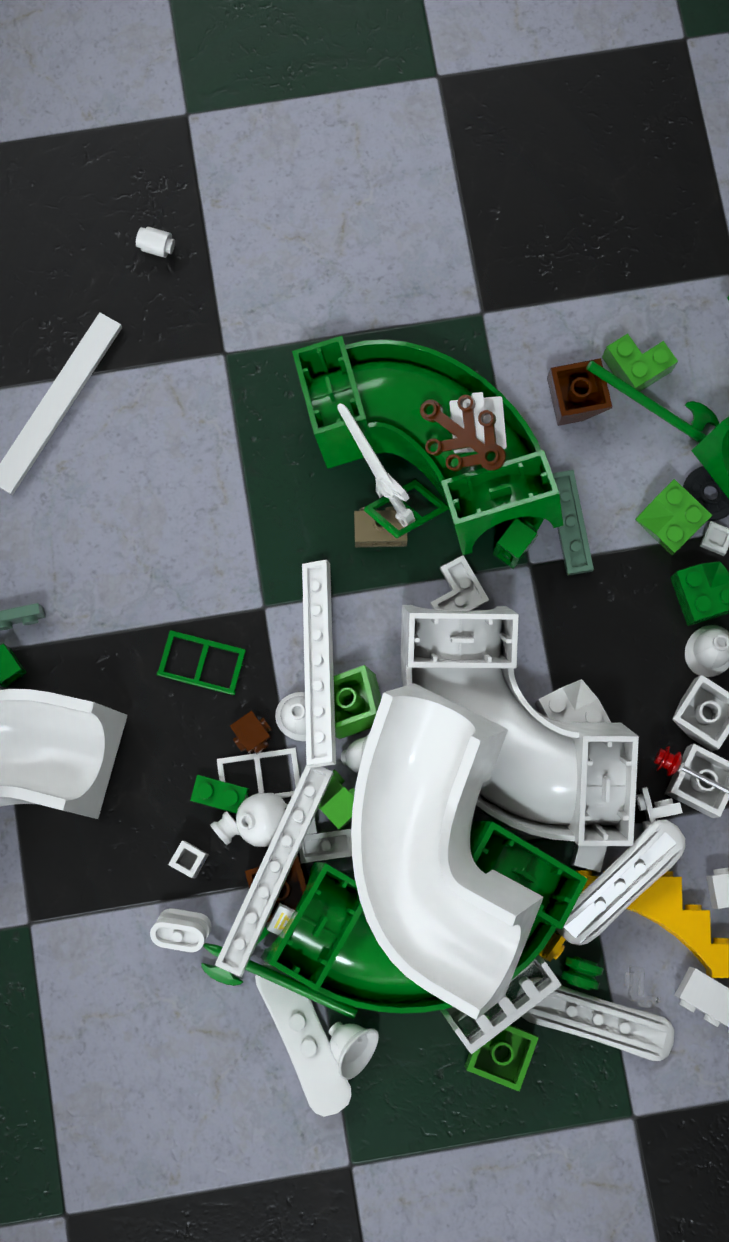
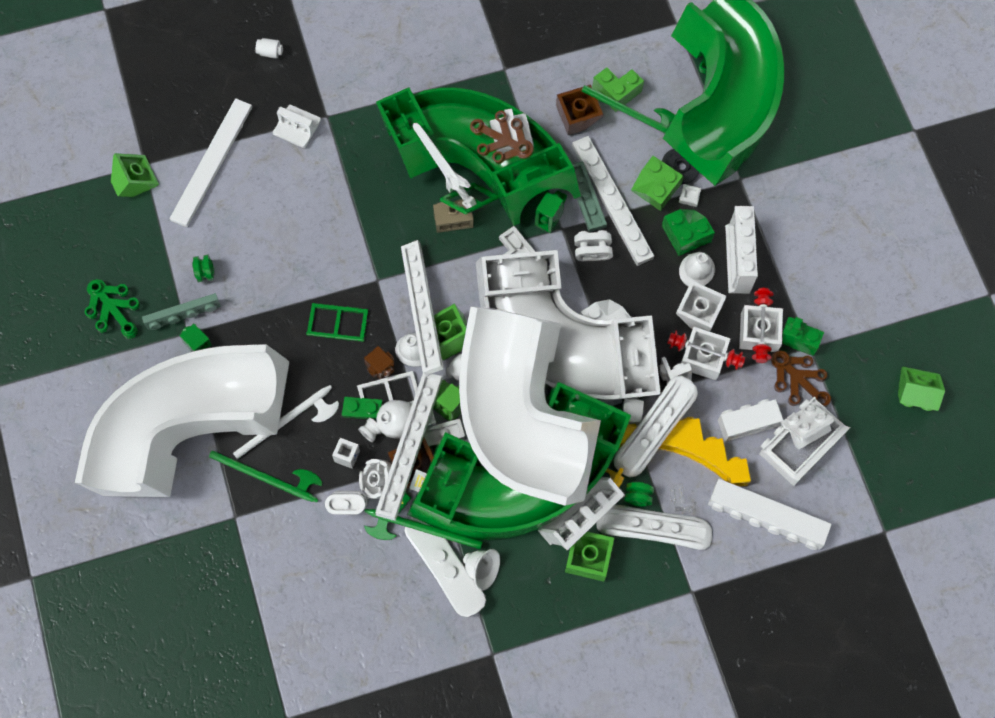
camera: 10 degrees left, 10 degrees down
(26, 562) = (203, 268): none -> green wheel
(132, 880) = (306, 477): none -> green piece
(167, 792) = (324, 412): none -> white piece
(179, 363) = (296, 125): none -> white bracket
(223, 902) = (374, 477): none -> white cylinder
(559, 588) = (593, 246): none -> white brick
(607, 532) = (613, 201): none -> white plate

